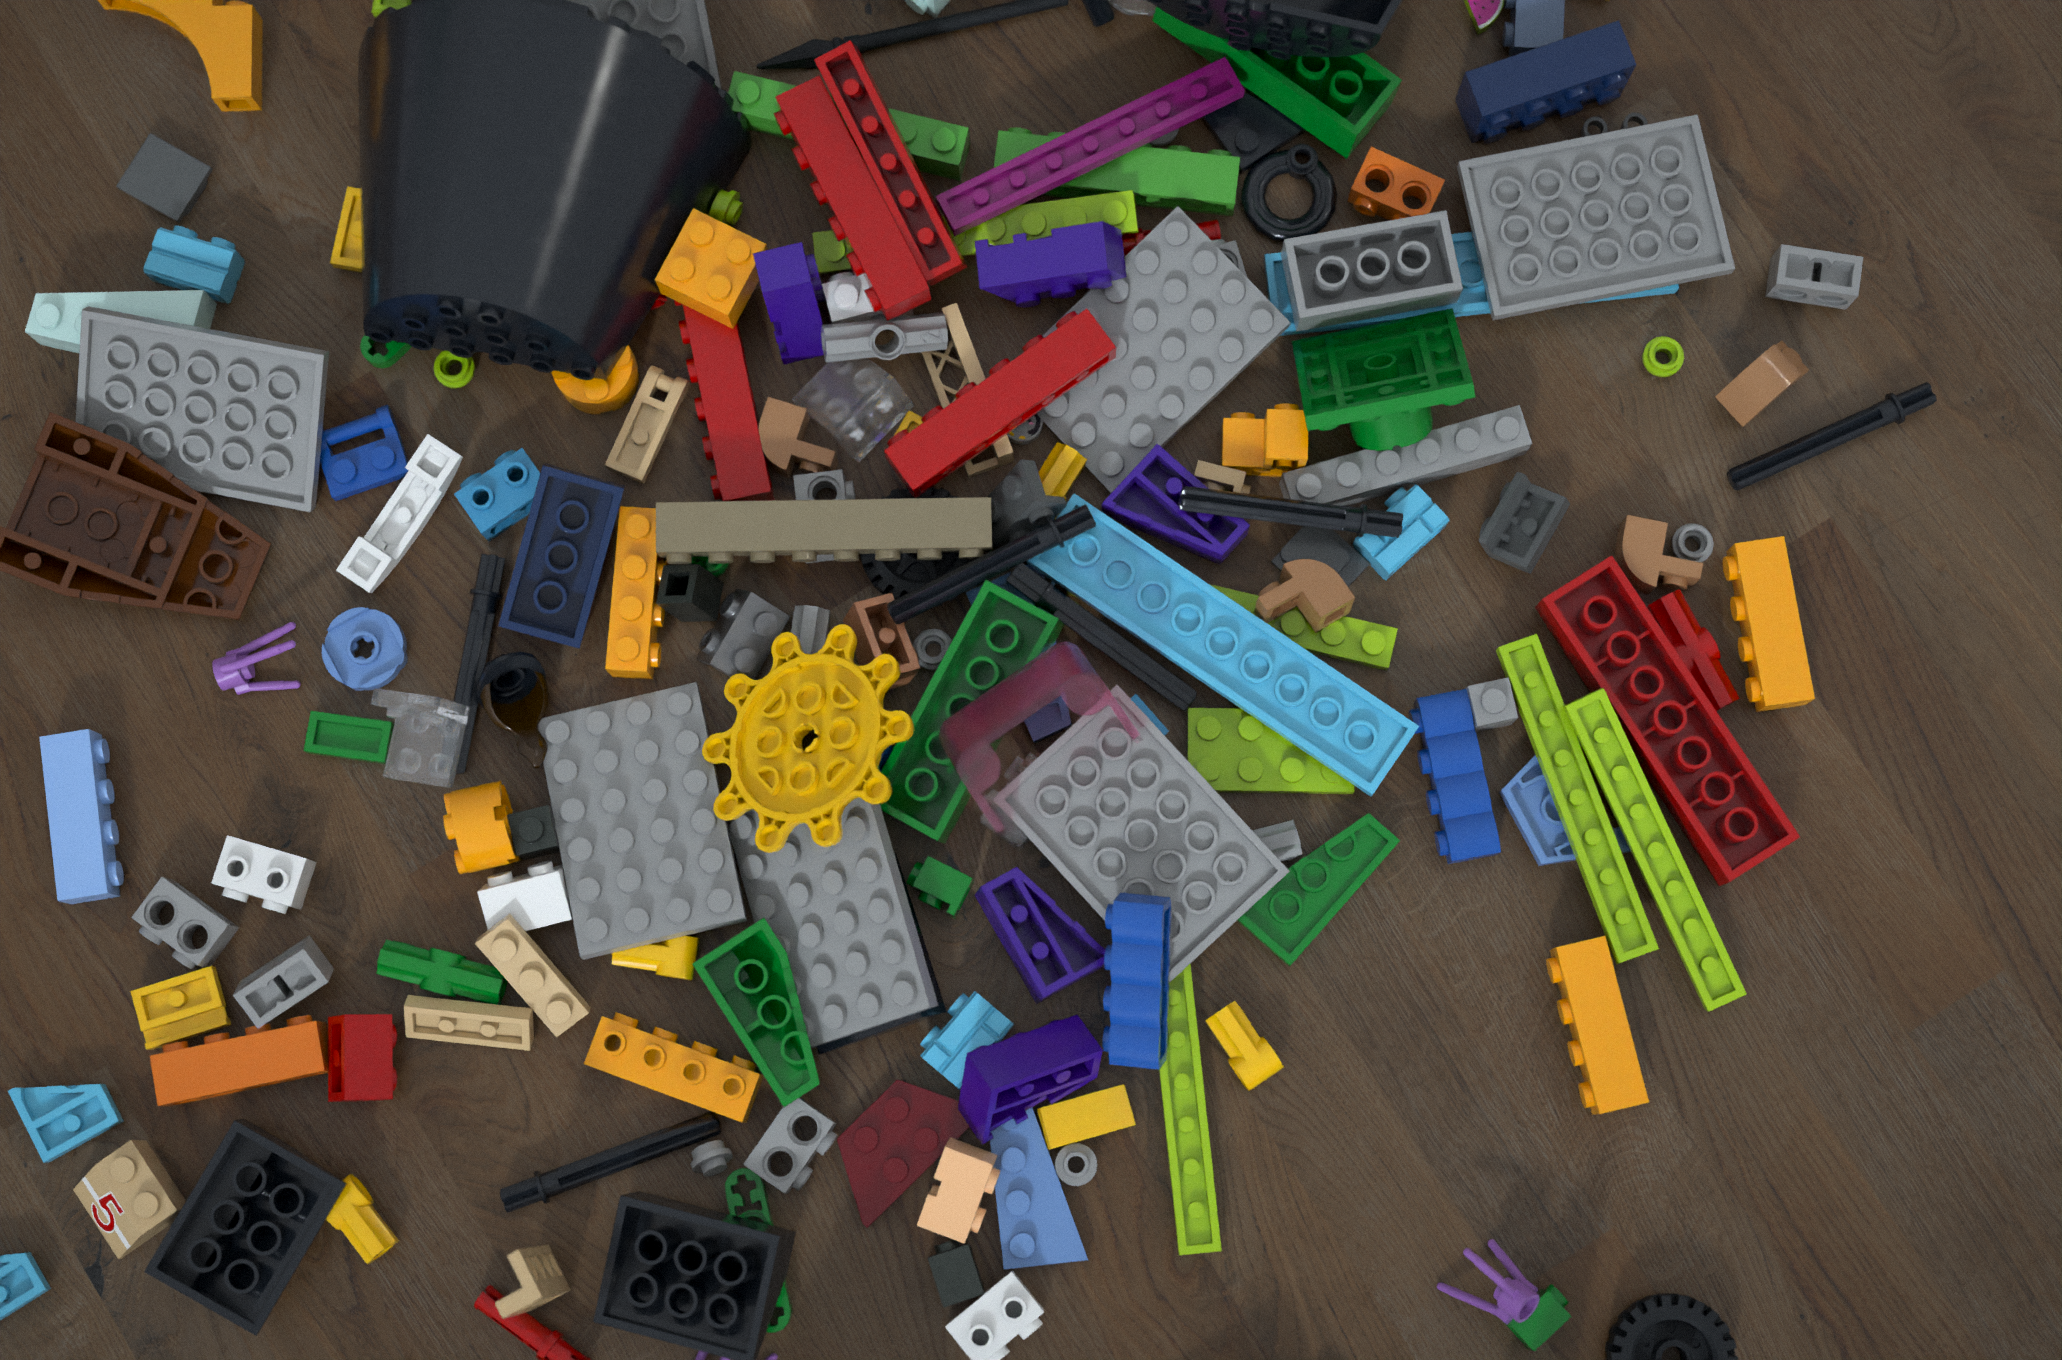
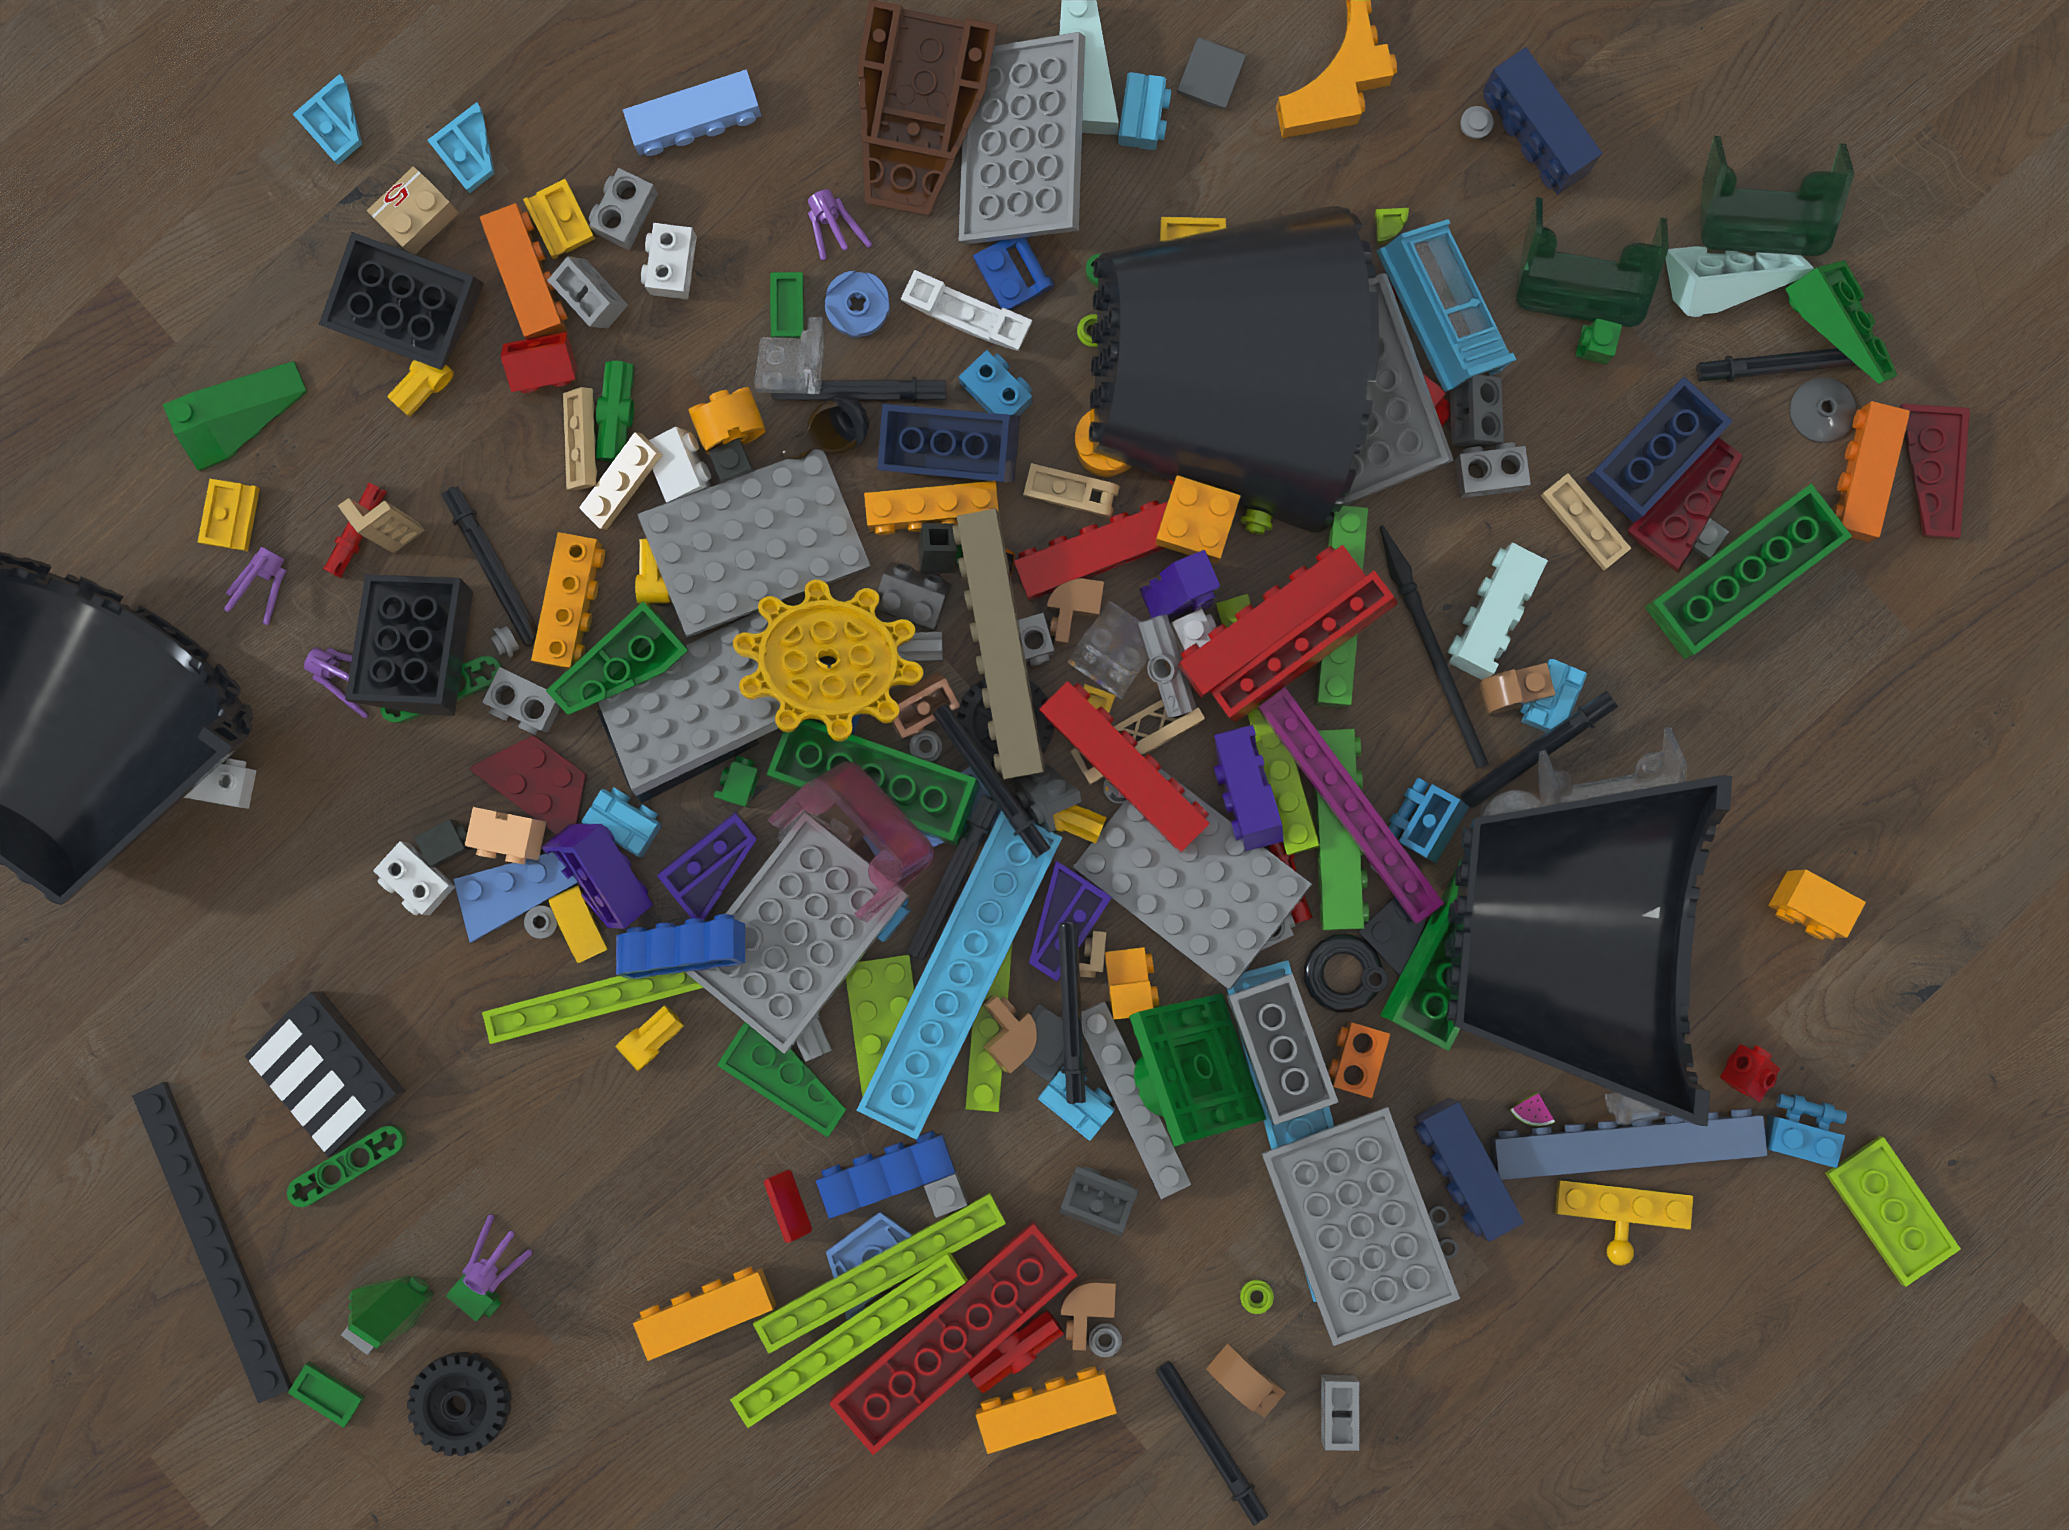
camera: 85 degrees right, 5 degrees up
(1125, 58) = (1432, 822): none -> dark azure brick
(1477, 904) = (787, 1205): none -> red slope

